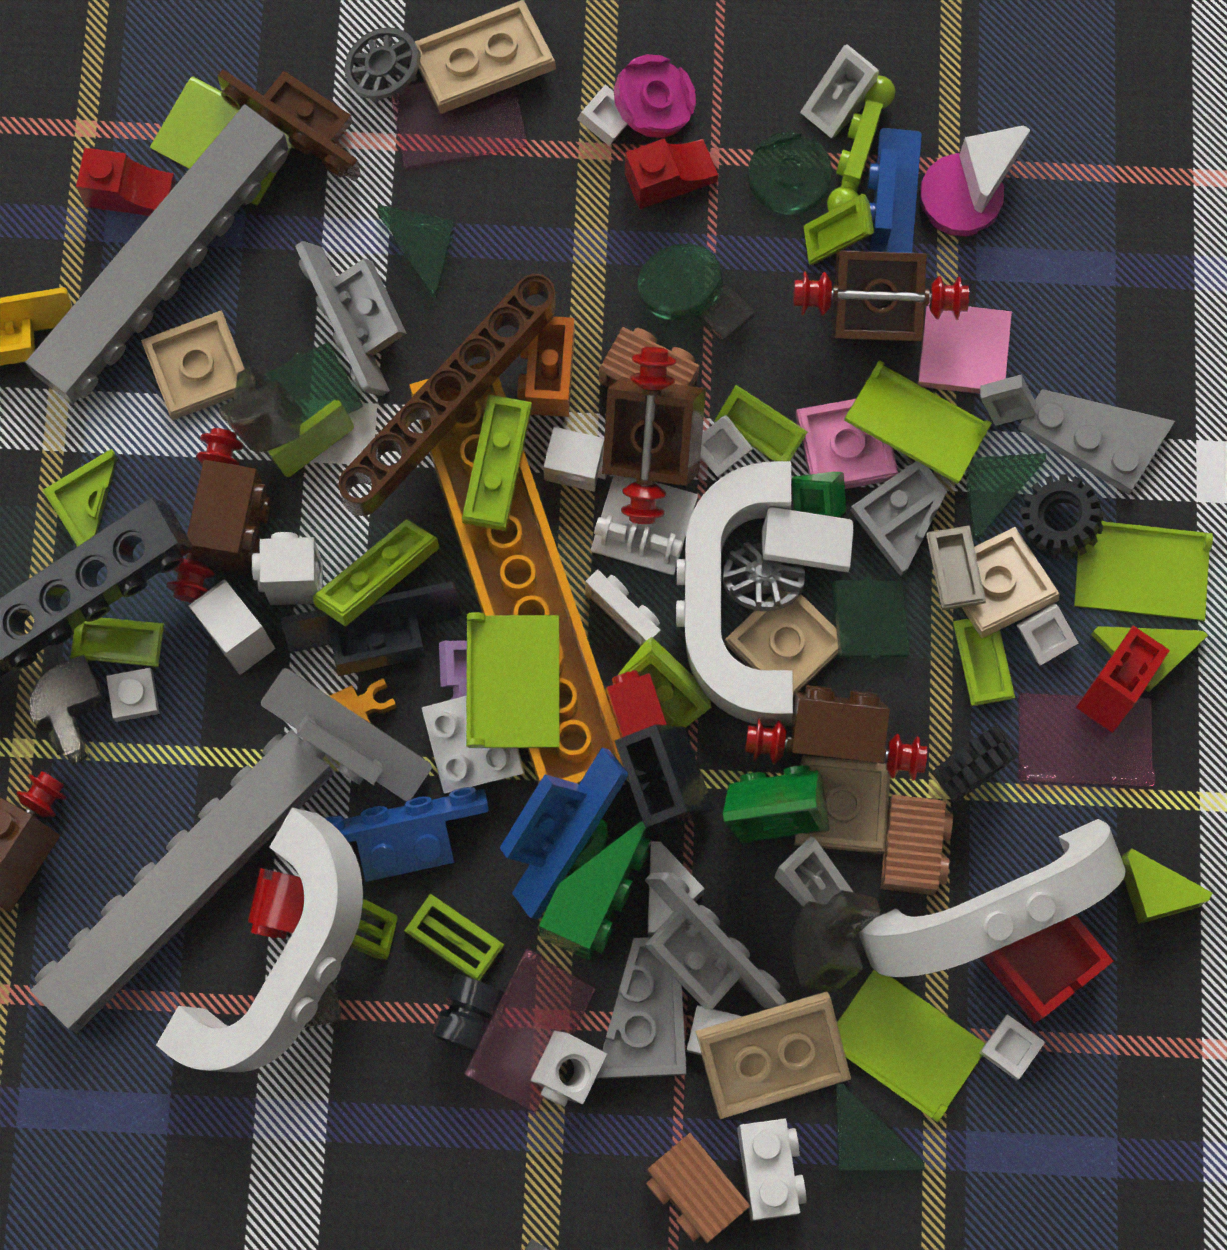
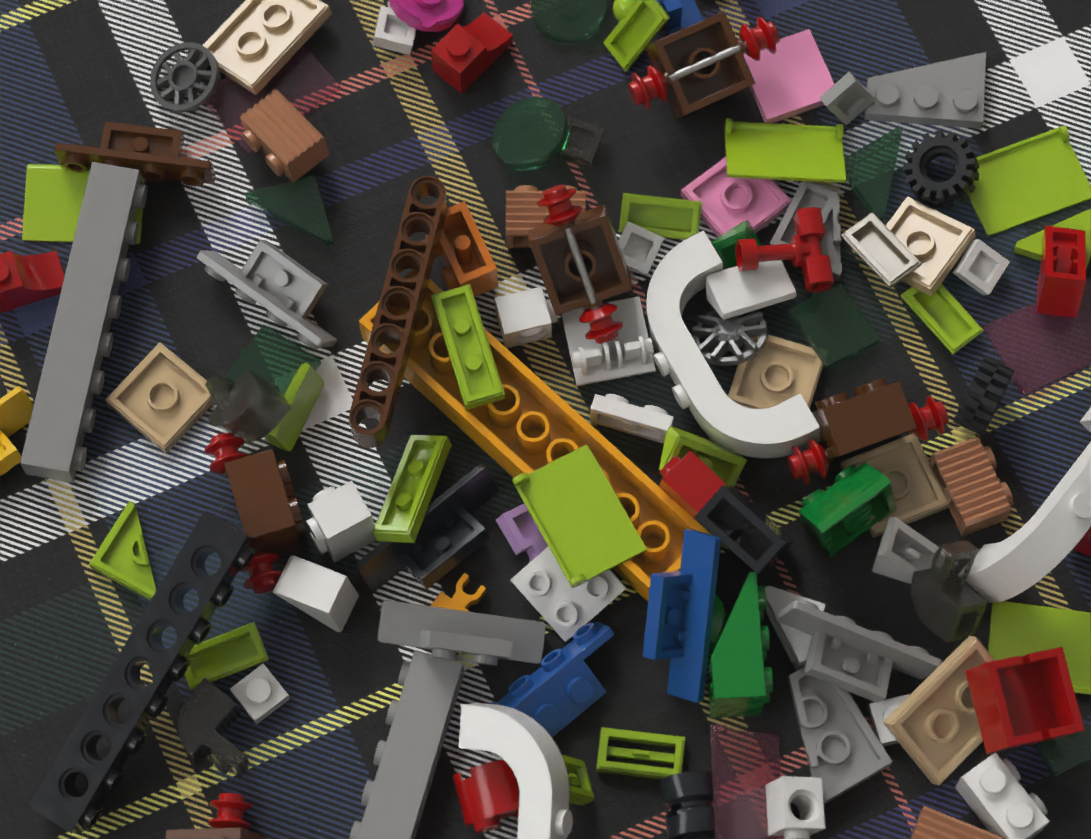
camera: 25 degrees left, 5 degrees down
(442, 167) = (283, 136): none -> nougat brick
(840, 1081) = (1025, 702): none -> red piece
(878, 530) = (803, 251): none -> red bar

